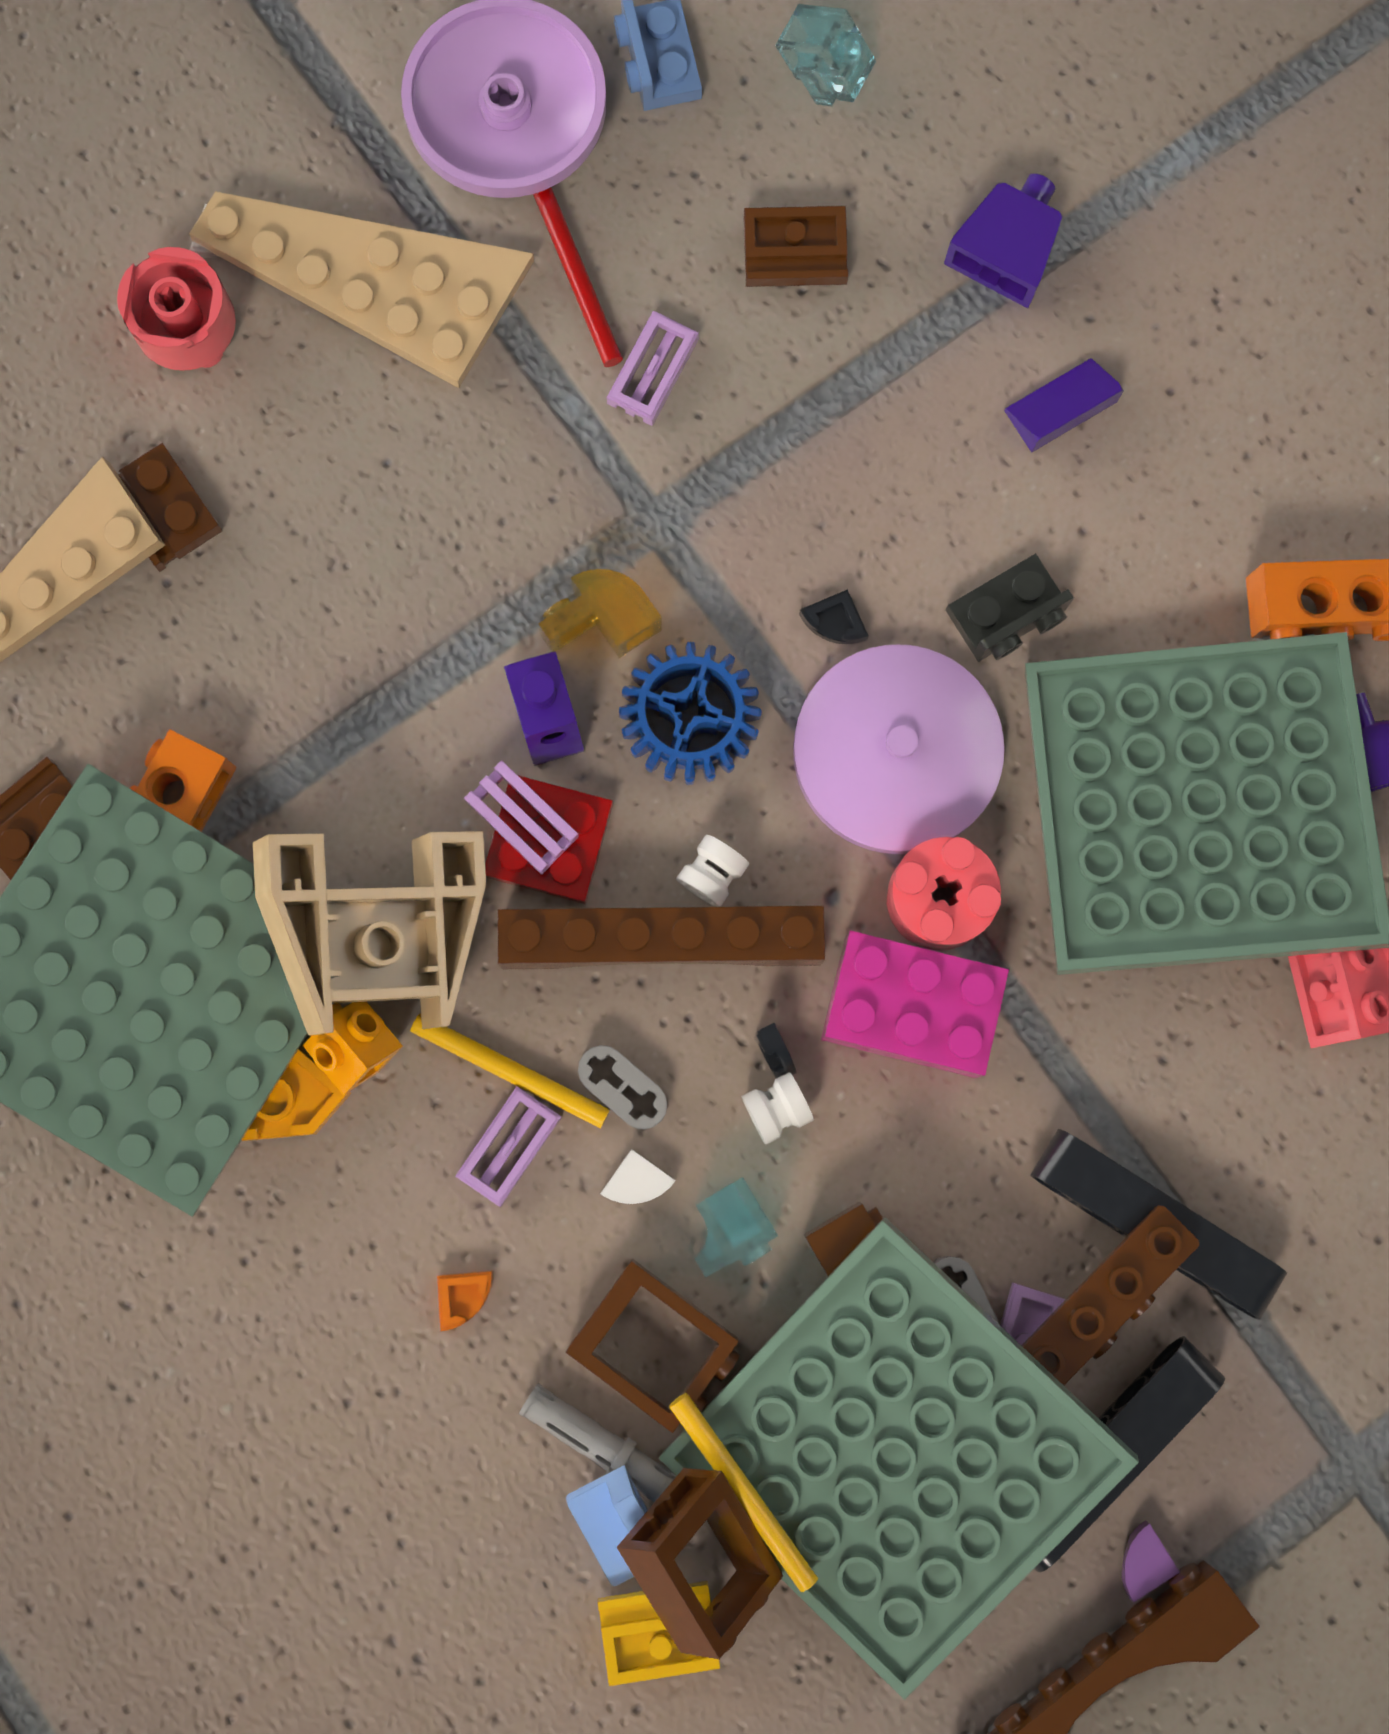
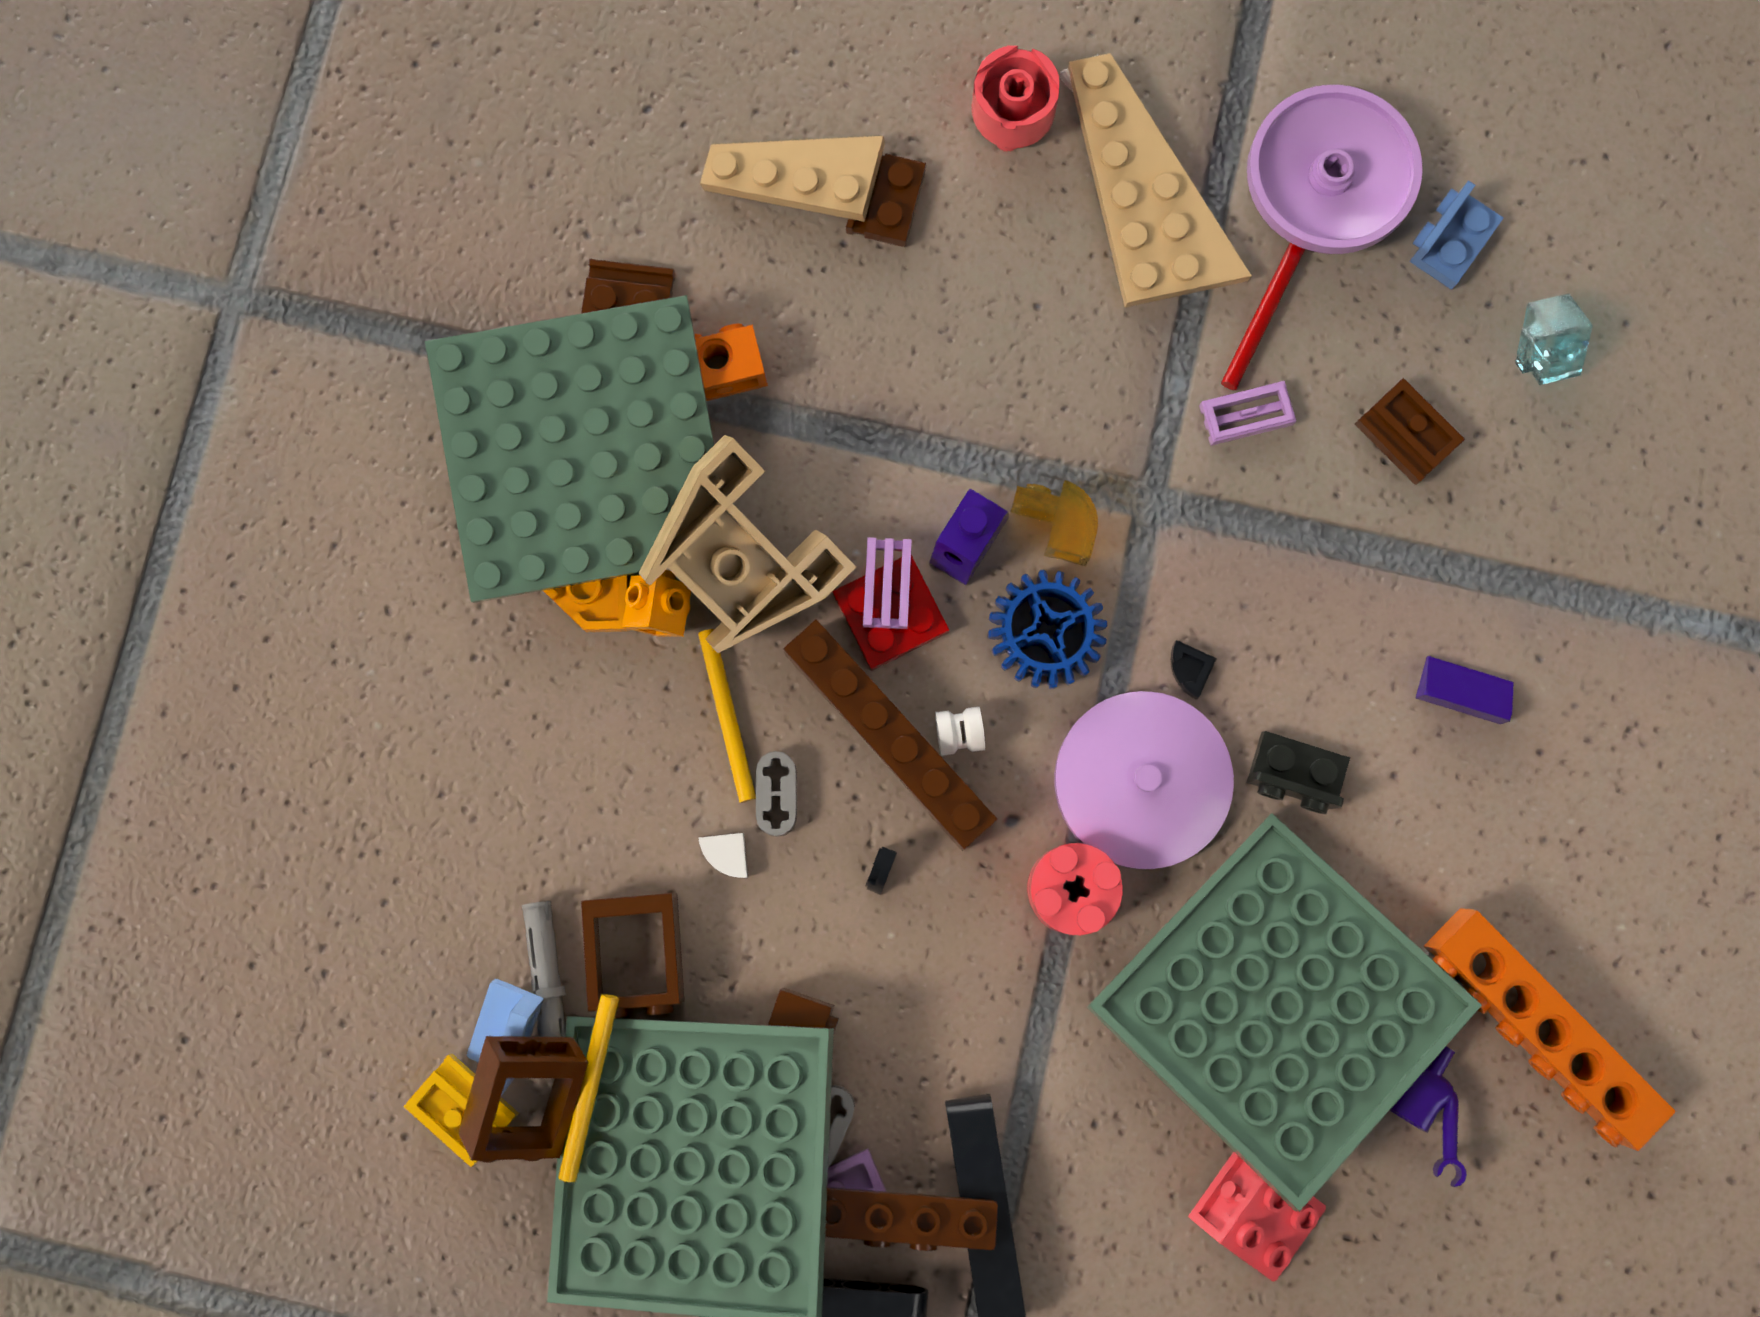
camera: 55 degrees right, 0 degrees up
(462, 1296) = (563, 808): orange tile -> none
(483, 1184) = (645, 742): lavender tile -> none
(734, 1228) = (748, 940): clear light blue brick -> none
(777, 1108) = (846, 901): white wheel -> none
(915, 1004) = (988, 932): dark pink brick -> none
(1008, 239) = (1541, 560): dark purple torso -> none

